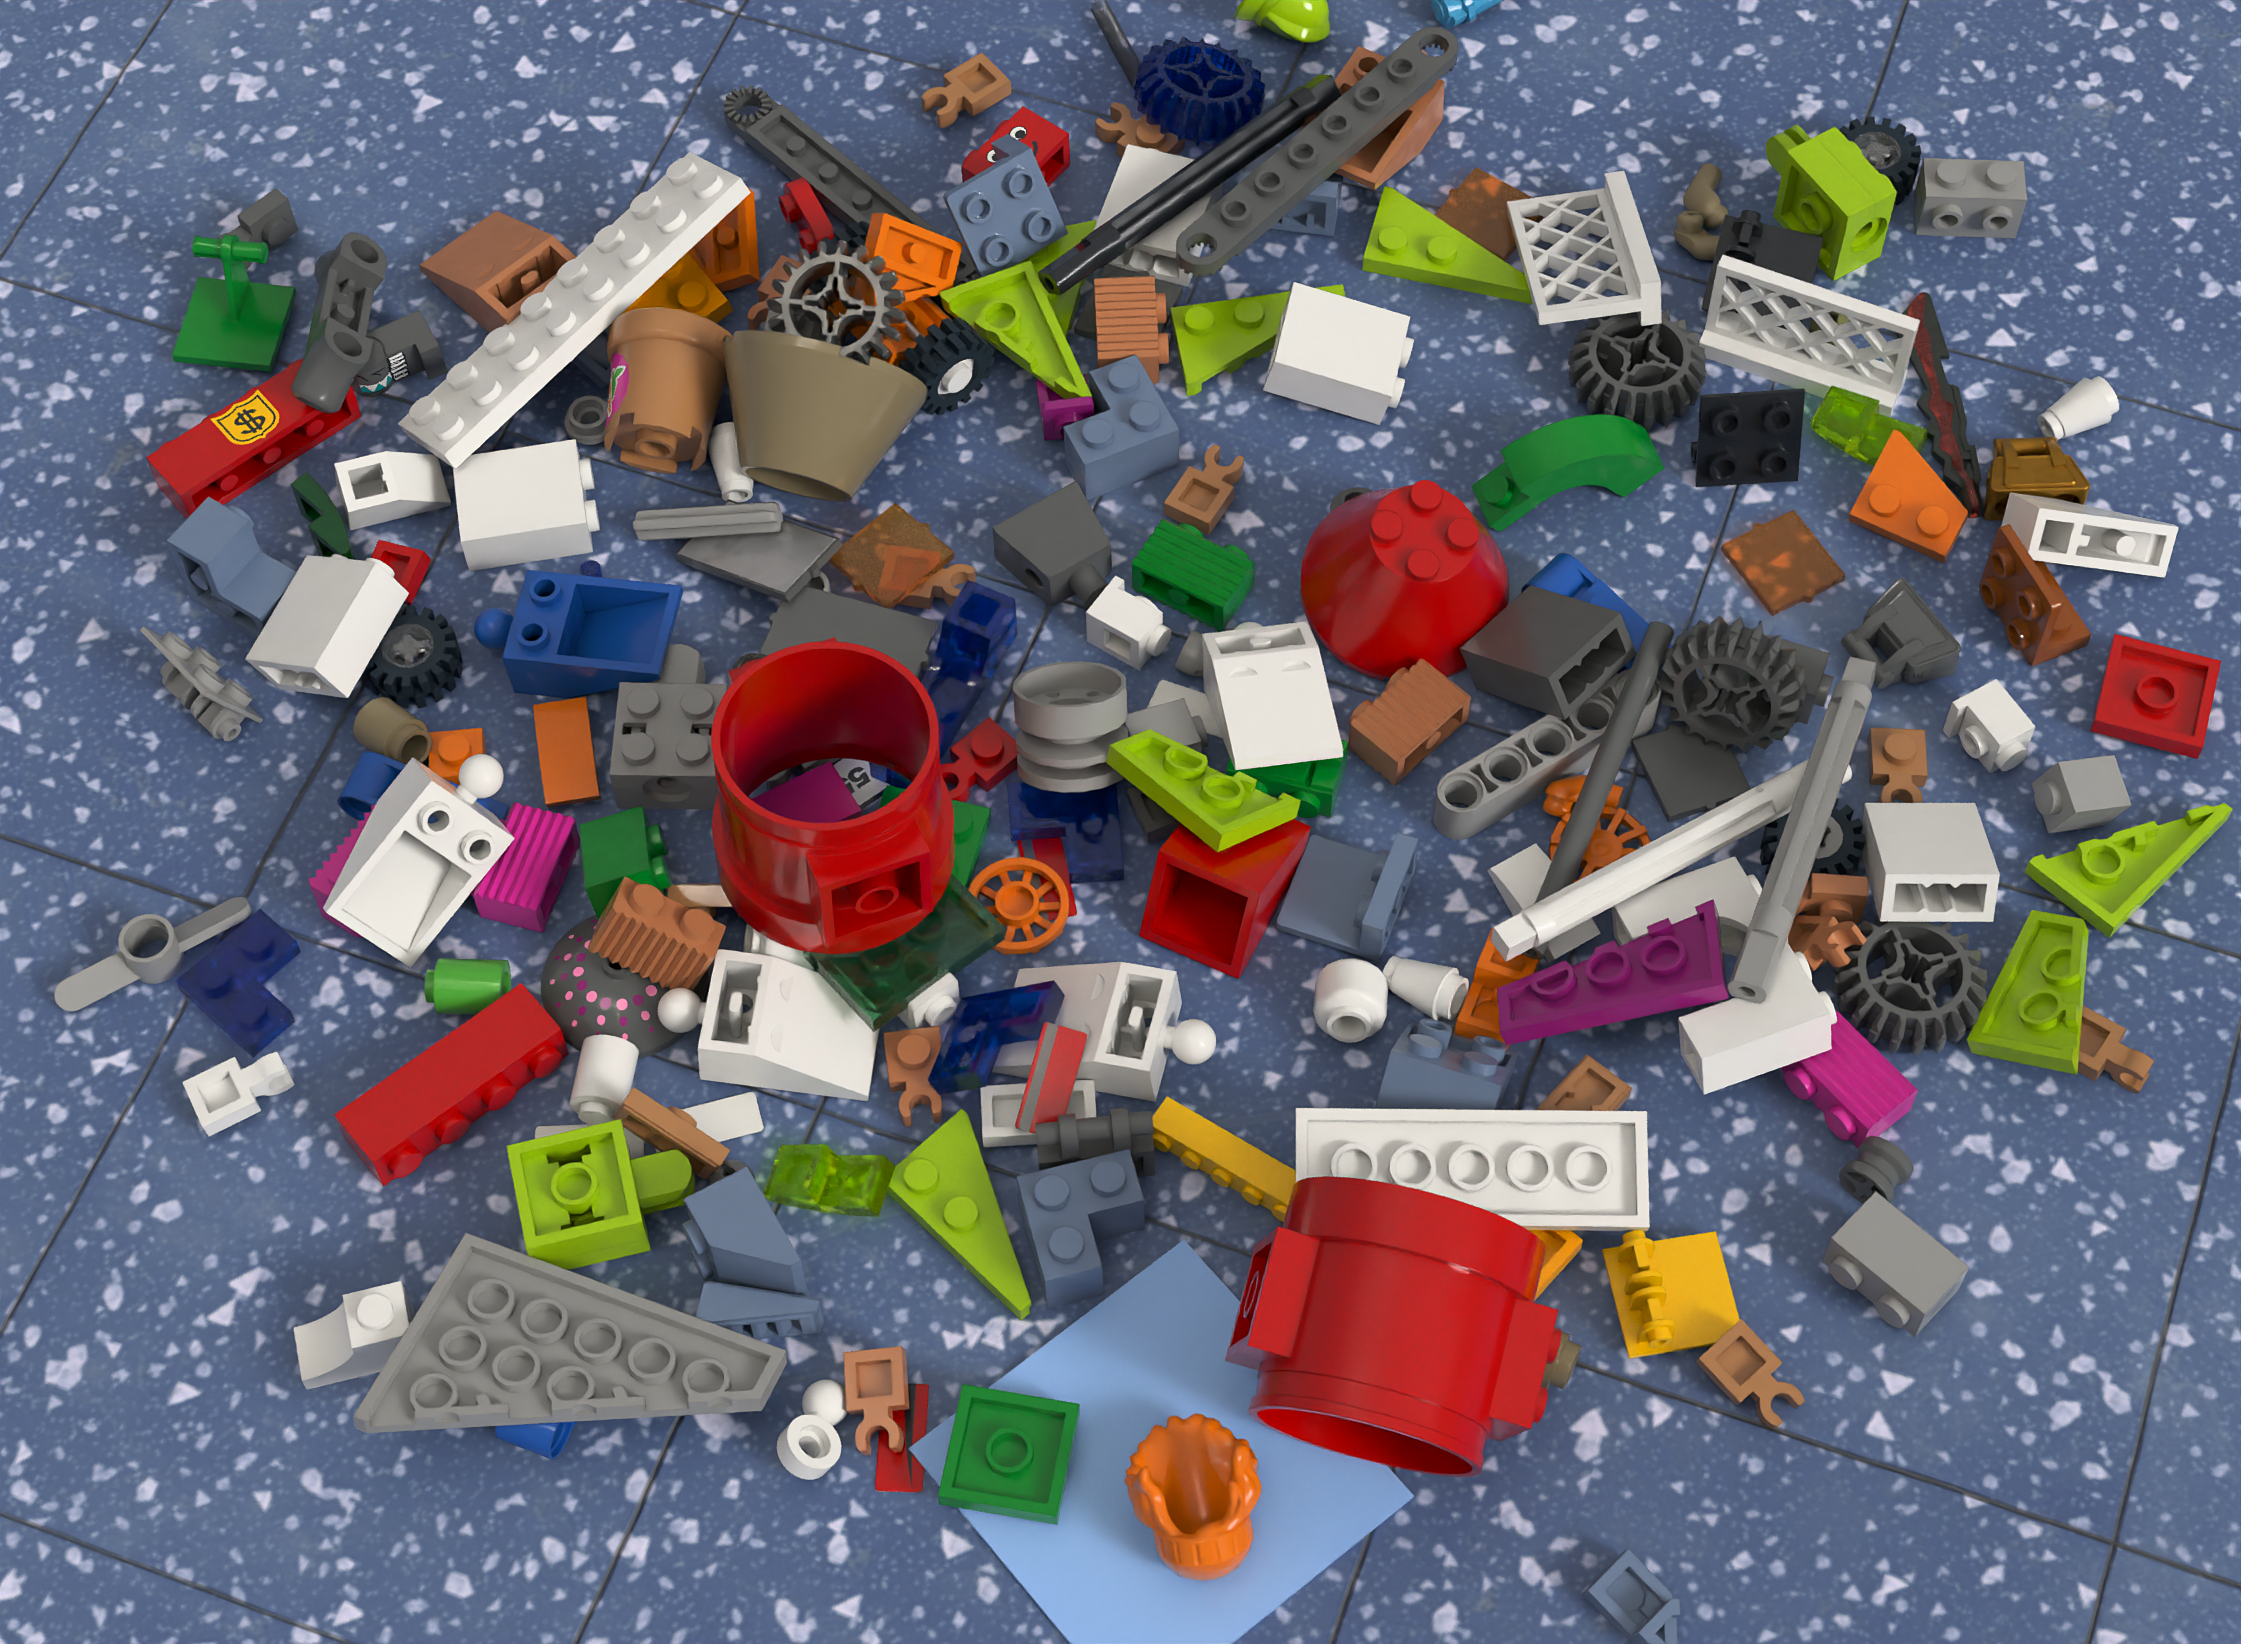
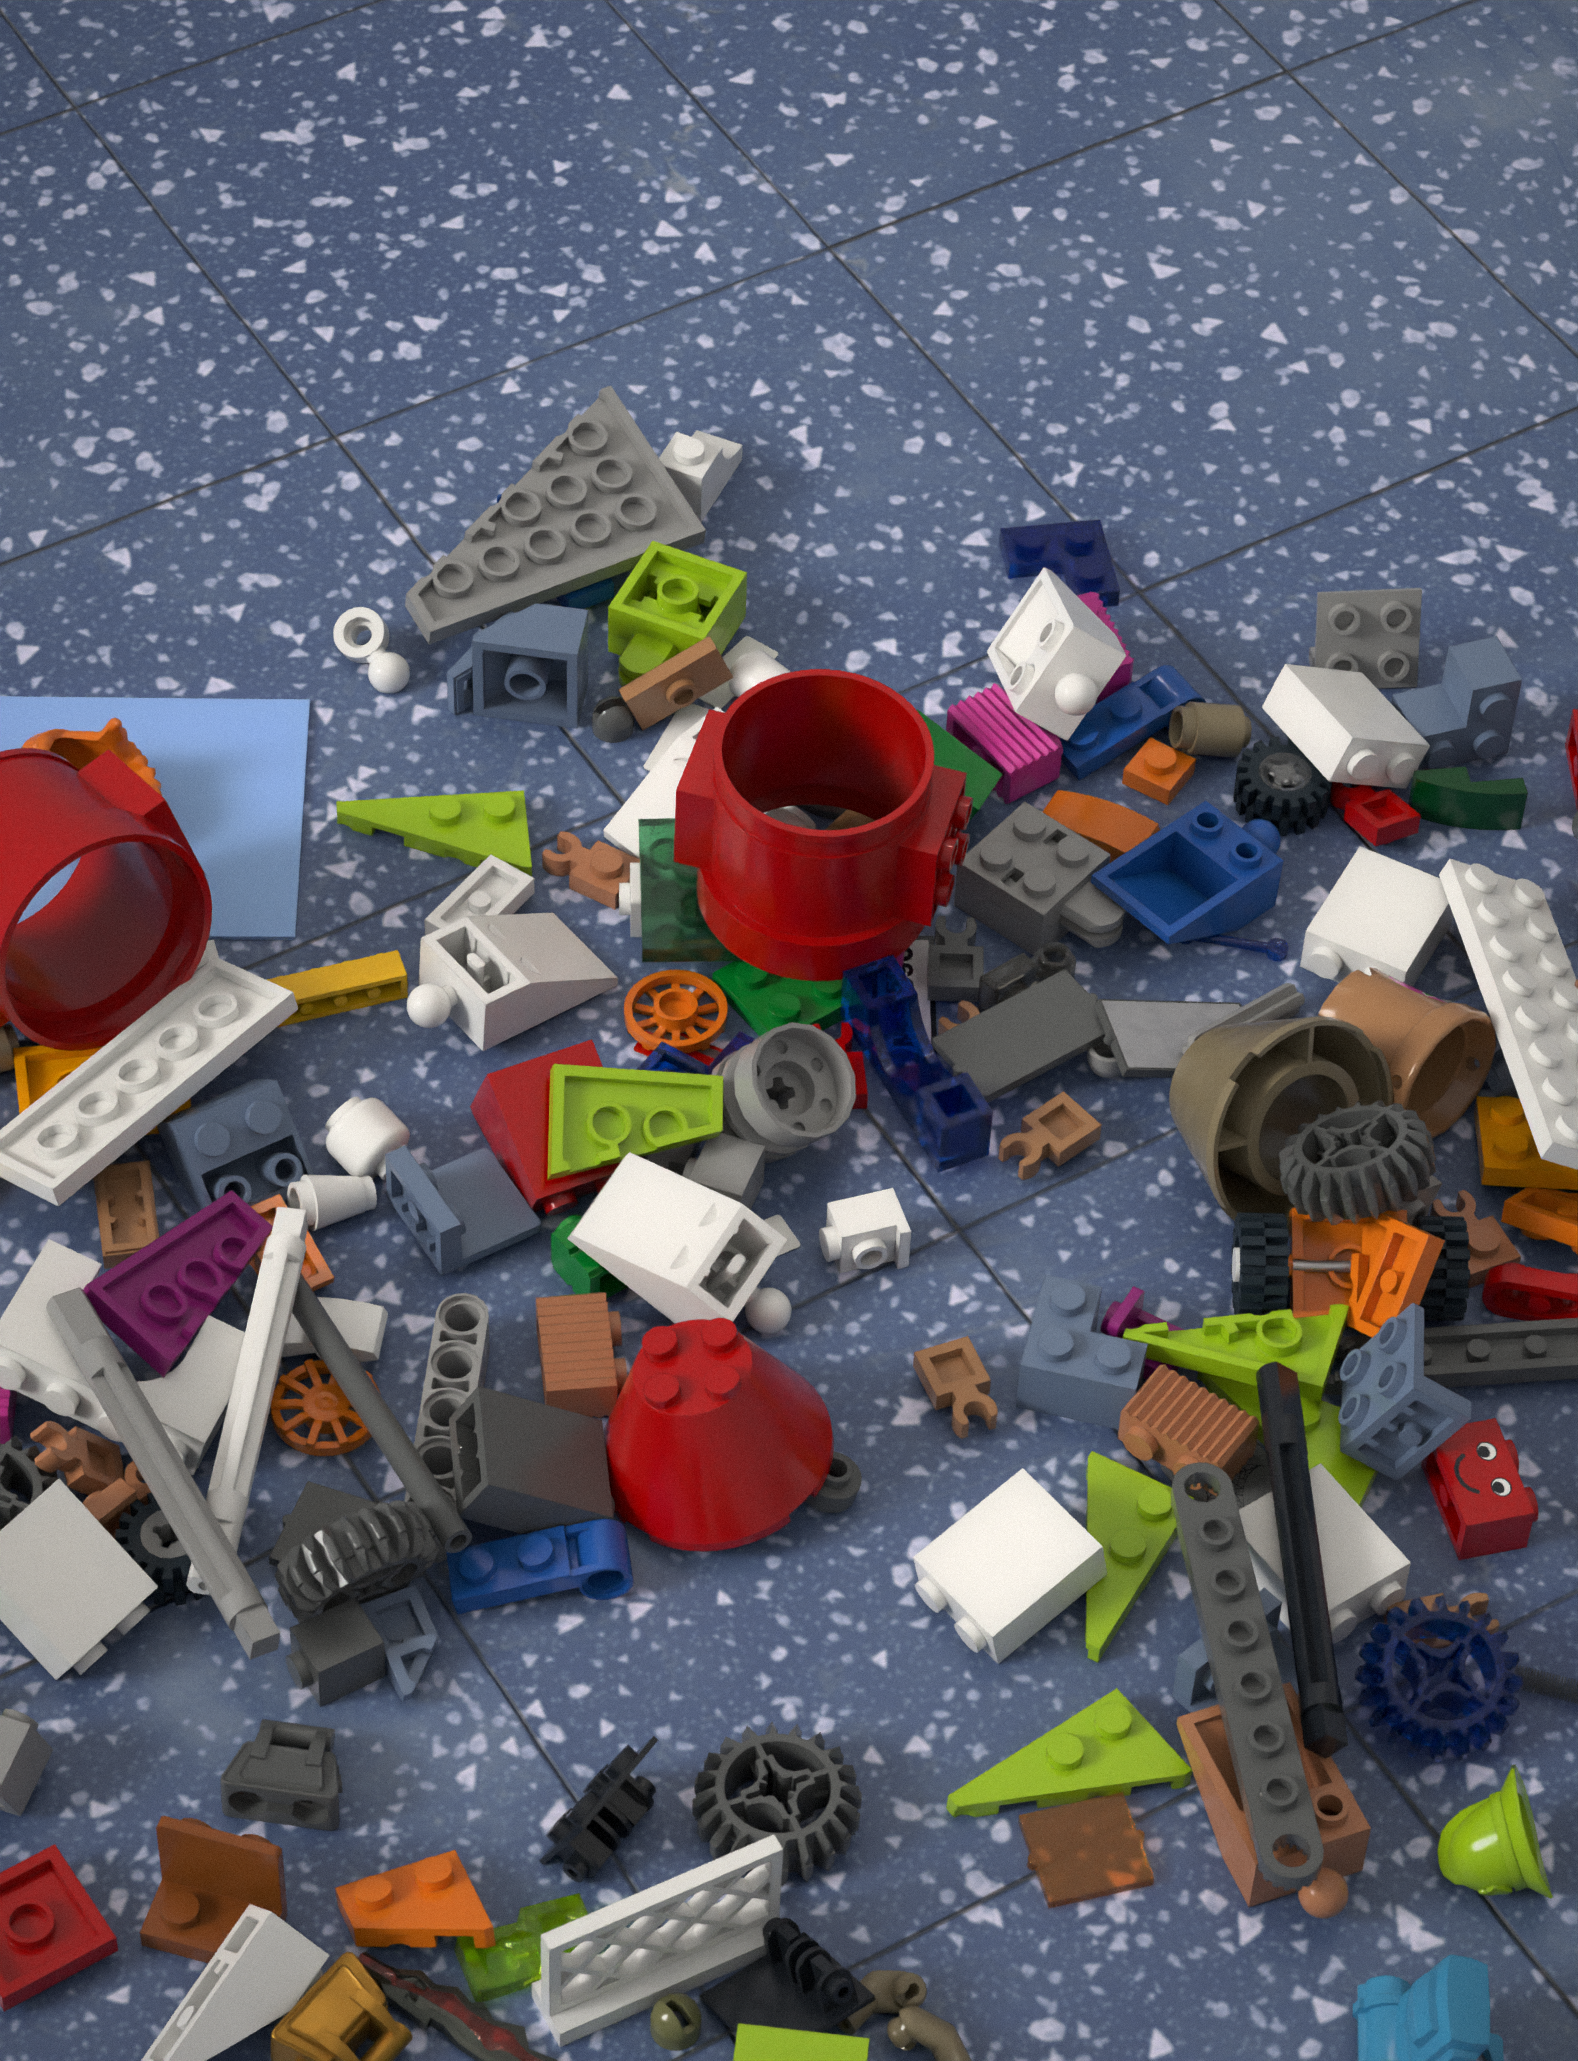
camera: 125 degrees right, 10 degrees down
(126, 968) = (1142, 525): light grey piece -> none
(229, 1092) = (969, 500): white plate -> none
(389, 487) = (1473, 826): white slope -> none
(452, 1085) = (848, 597): red brick -> none
(466, 984) = (926, 661): bright green brick -> none
(826, 1182) = (560, 765): clear neon green slope -> none
(876, 1387) = (362, 695): nougat plate -> none
(891, 556) = (1087, 1115): clear orange piece -> none
(901, 1469) = (325, 704): red sticker -> none
(984, 1025) = (569, 901): clear blue plate -> none
(1009, 1454) = (237, 728): green plate -> none
(1051, 1076) = (483, 896): red sticker -> none
(1056, 547) = (989, 1239): dark grey torso -> none
(1072, 1209) = (369, 862): sand blue brick -> none
(1086, 1138) = (406, 897): dark grey plate -> none
(1191, 657) = (793, 1268): light grey hinge -> none
(1193, 574) = (874, 1312): green brick -> none
(1563, 456) = (703, 1650): green arch -> none
(1566, 791) = (406, 1412): orange arm -> none
(1622, 246) = (913, 1874): white fence -> none
(1783, 562) = (464, 1772): clear orange piece -> none
(1898, 762) = (179, 1686): medium nougat plate -> none
(1991, 727) = (132, 1764): white brick -> none

